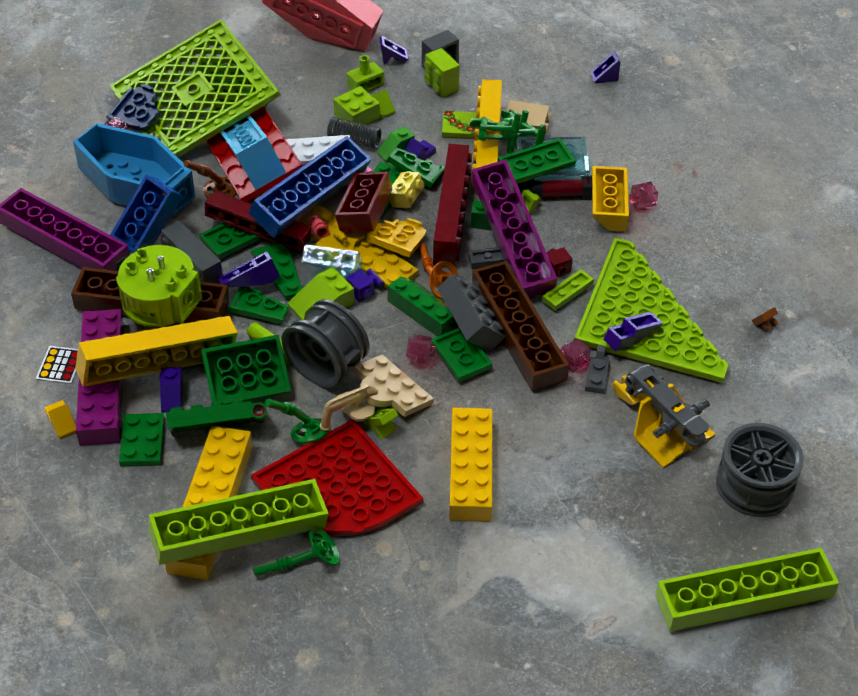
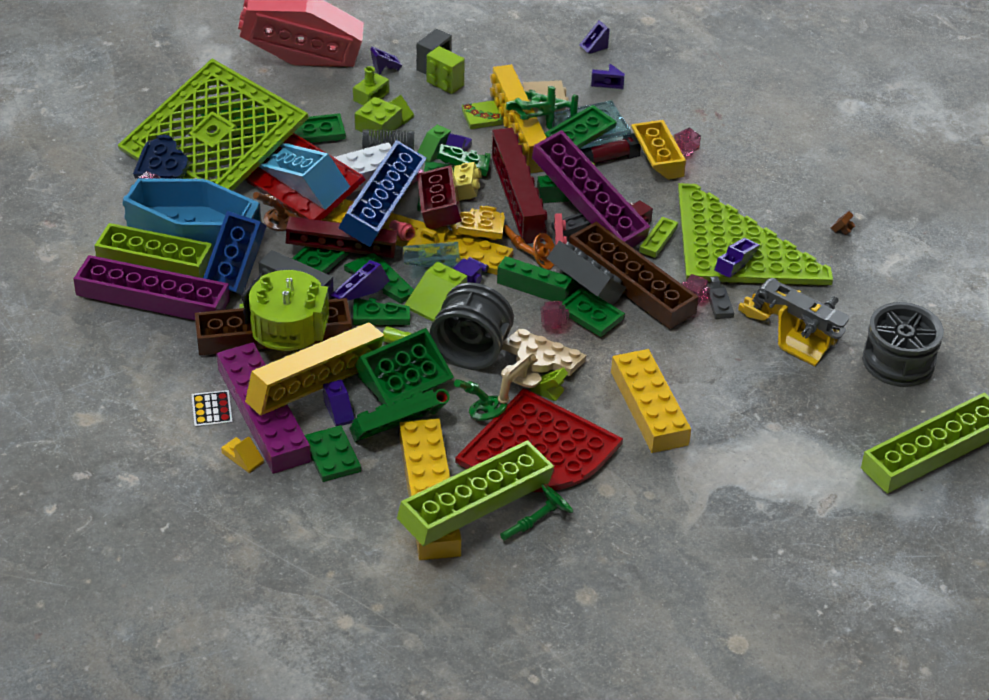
camera: 20 degrees left, 5 degrees down
(80, 196) = (154, 250): none -> lime brick
(297, 107) = (322, 128): none -> green plate
(469, 257) = (560, 226): none -> coral hinge
(600, 113) = (608, 79): none -> dark purple slope

